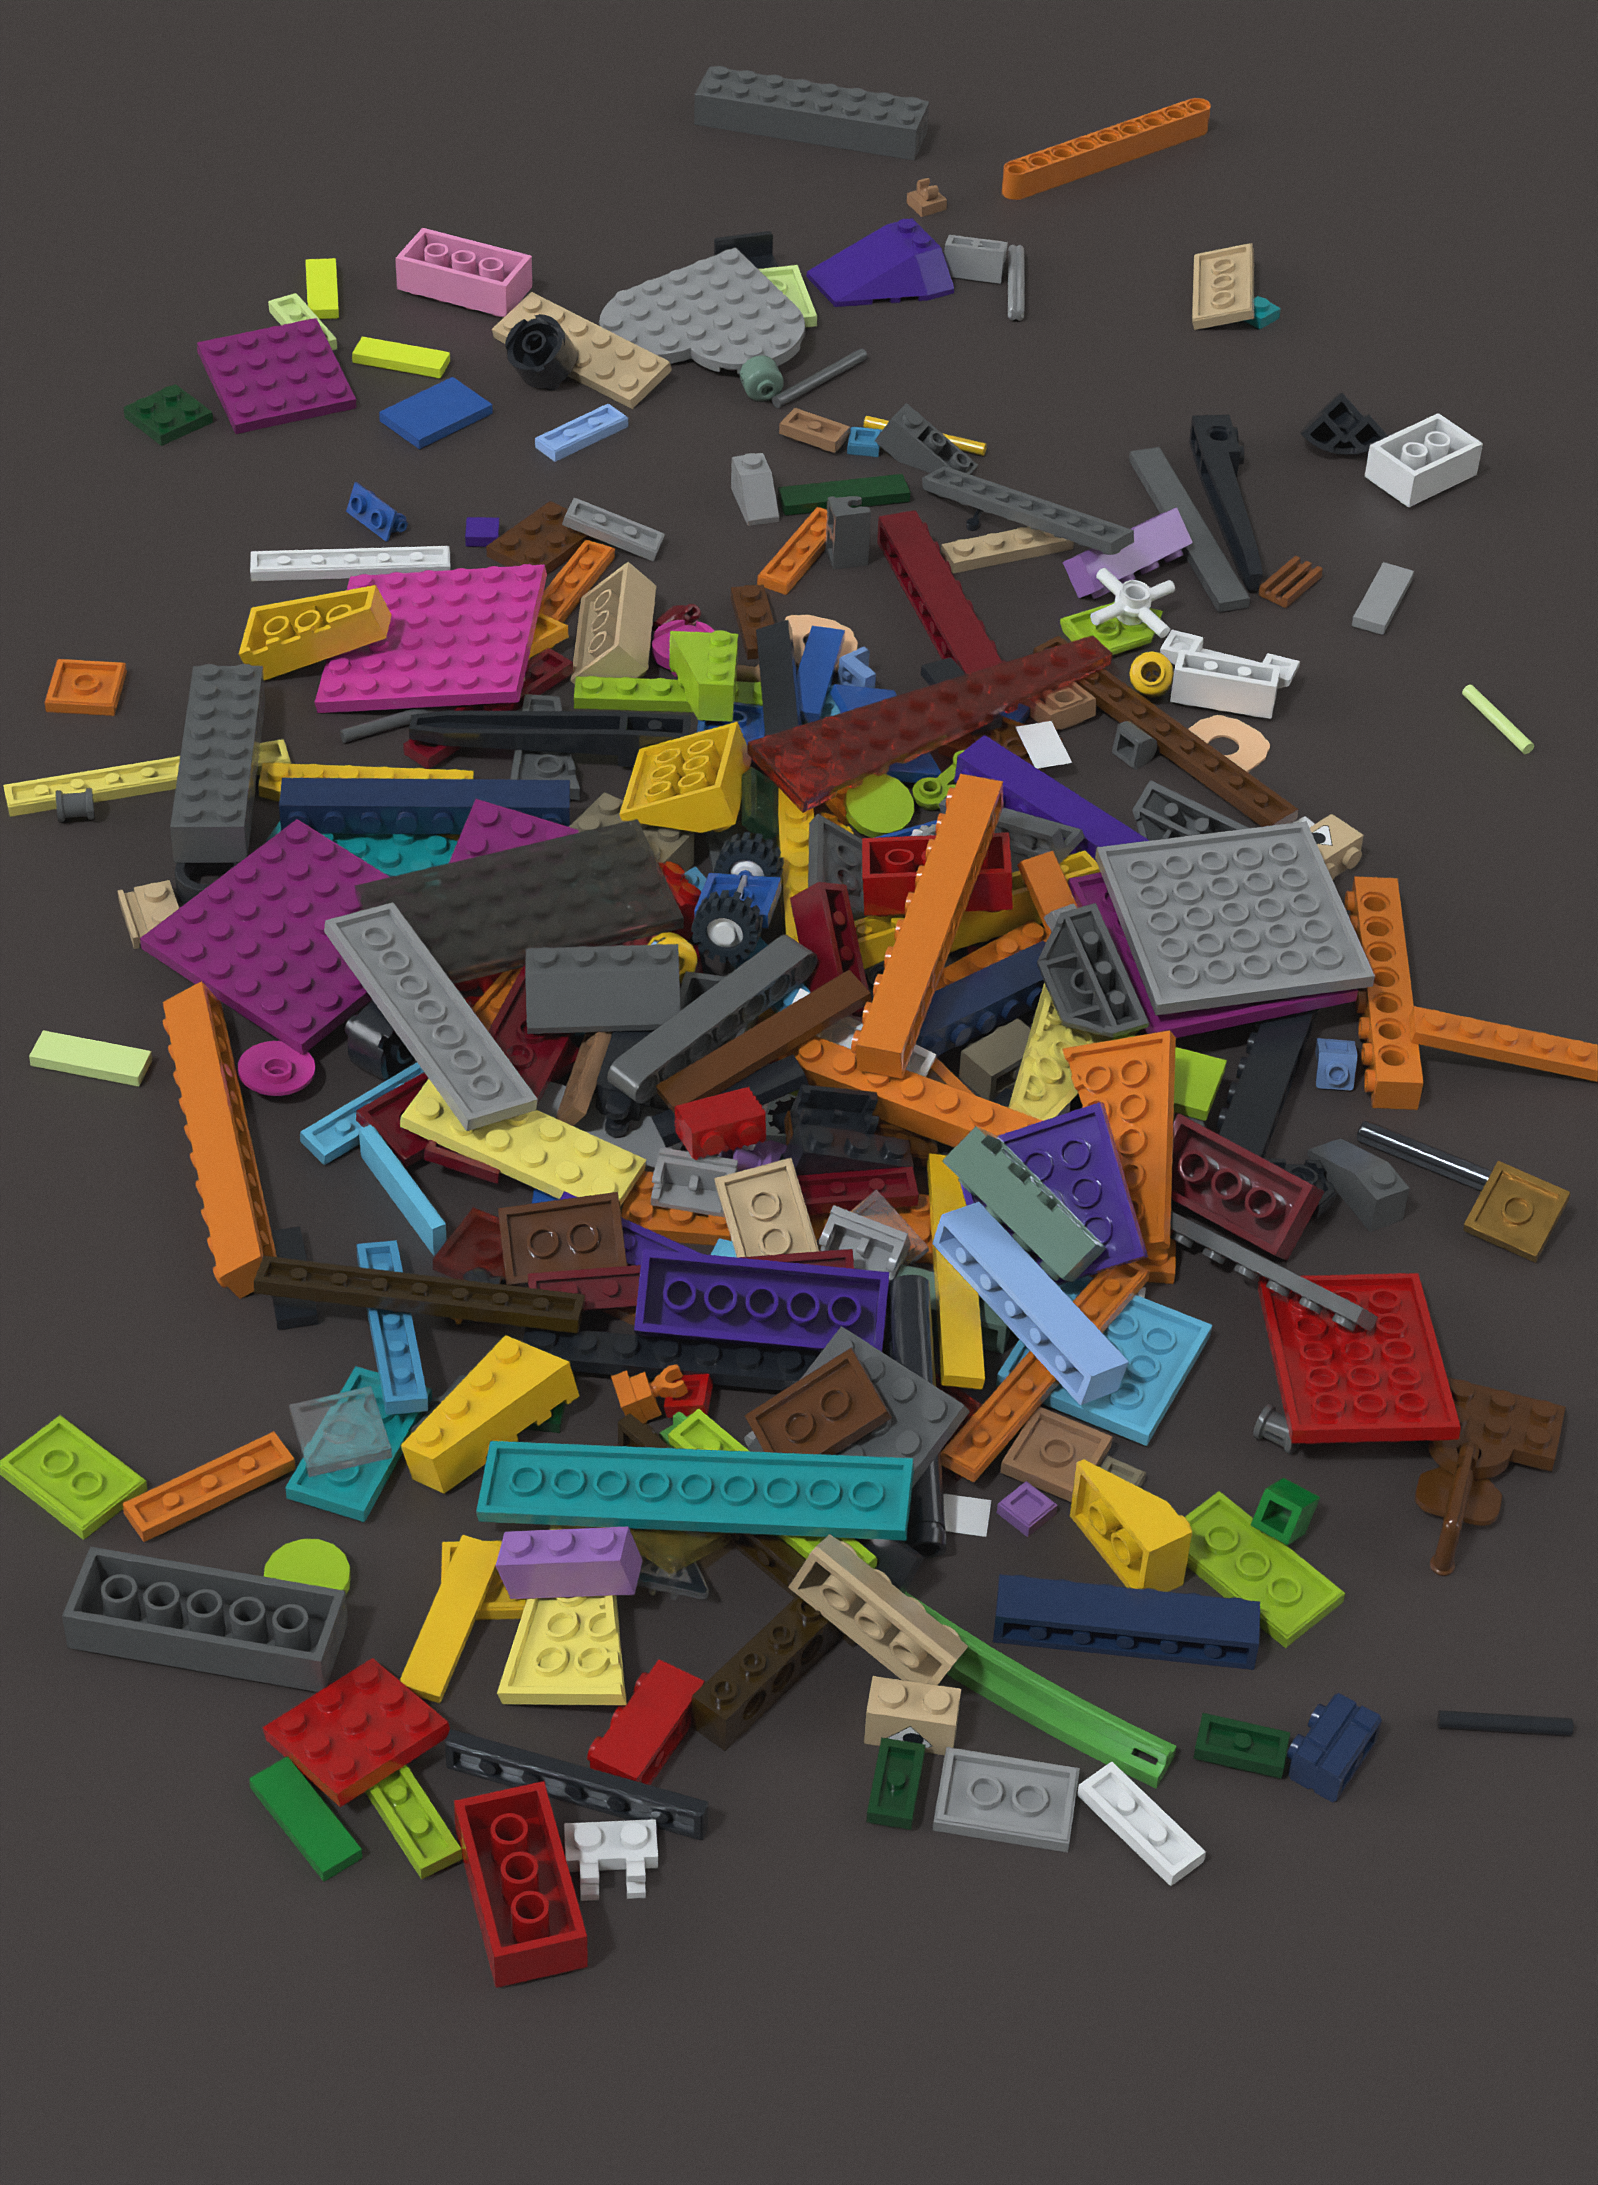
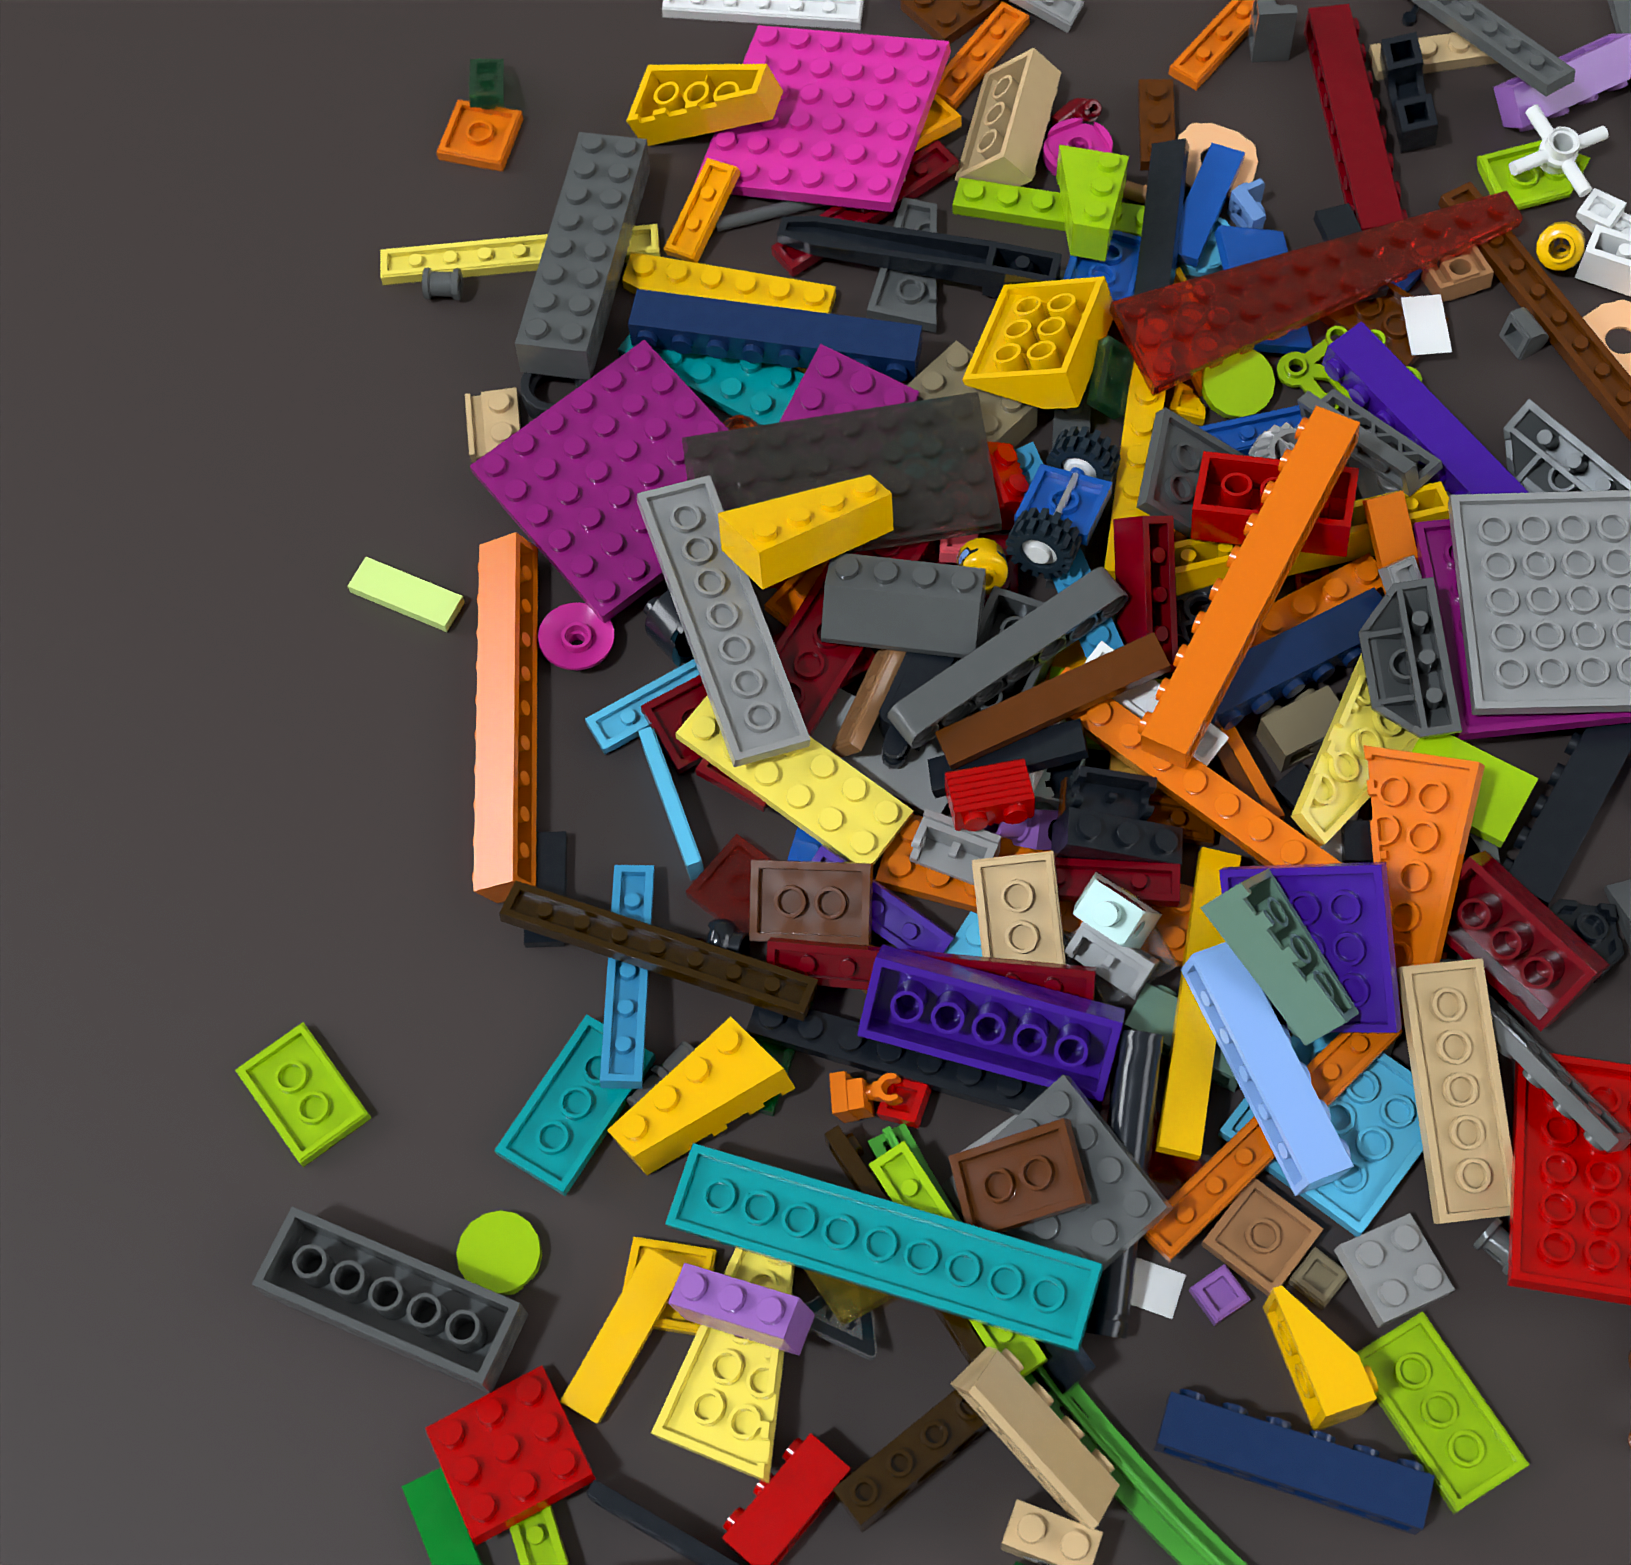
camera: 20 degrees right, 20 degrees up
(86, 642) = (486, 83): none -> clear green plate
(208, 1486) = (425, 1132): orange plate -> none
(328, 721) = (702, 210): none -> light orange tile
(340, 1431) = (556, 1095): clear tile -> none
(497, 926) = (805, 528): none -> yellow wedge
(863, 1193) = (1116, 912): none -> light aqua torso
(991, 584) = (1404, 82): none -> black arch
(1185, 1462) = (1394, 1270): none -> light grey plate
(1210, 1304) = (1457, 1089): none -> tan plate
(1285, 1511) = (1485, 1359): green brick -> none

